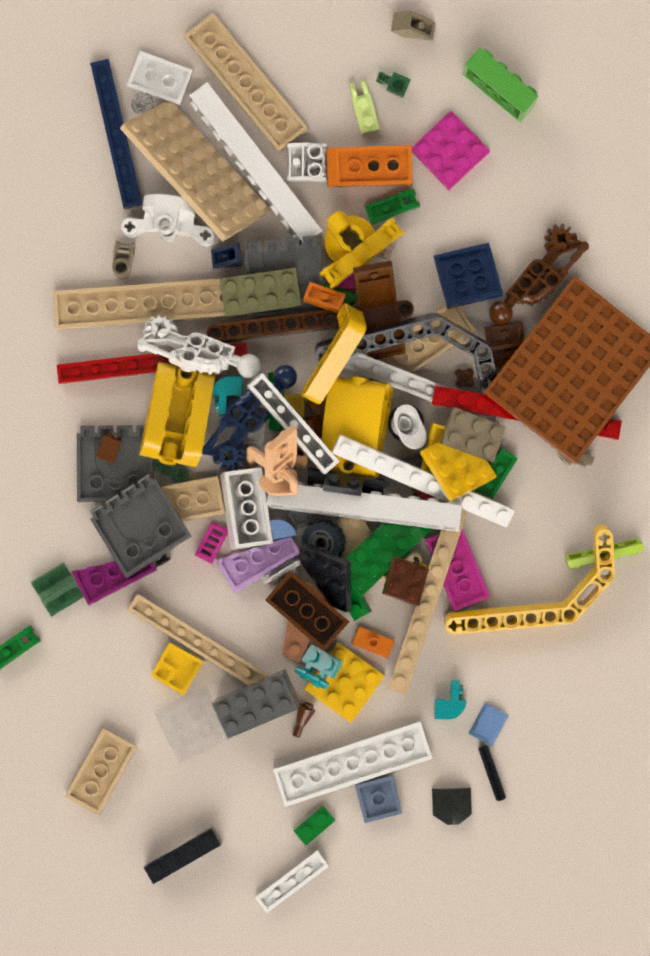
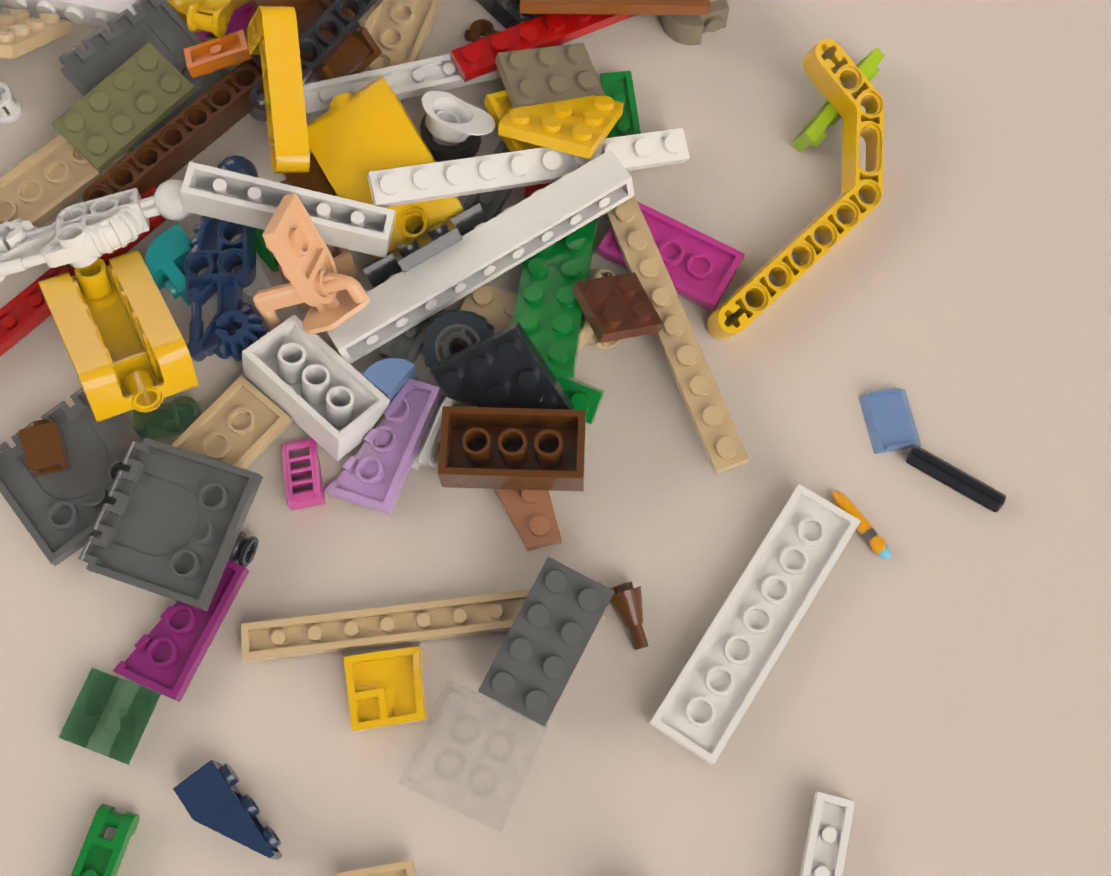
camera: 40 degrees left, 15 degrees down
(76, 665) = (218, 804): none -> dark blue slope
(227, 256) = (48, 102): dark blue slope -> none
(314, 825) = (779, 759): green plate -> none
(323, 662) = (589, 510): teal plate -> none
(351, 685) = (647, 518): yellow plate -> none
(373, 642) = (641, 433): orange plate -> none
(378, 799) = (837, 641): sand blue plate -> none
(433, 762) = (876, 542): none -> light orange piece
(451, 708) = (822, 430): teal brick -> none
(452, 804) = (942, 567): pearl dark grey slope -> none

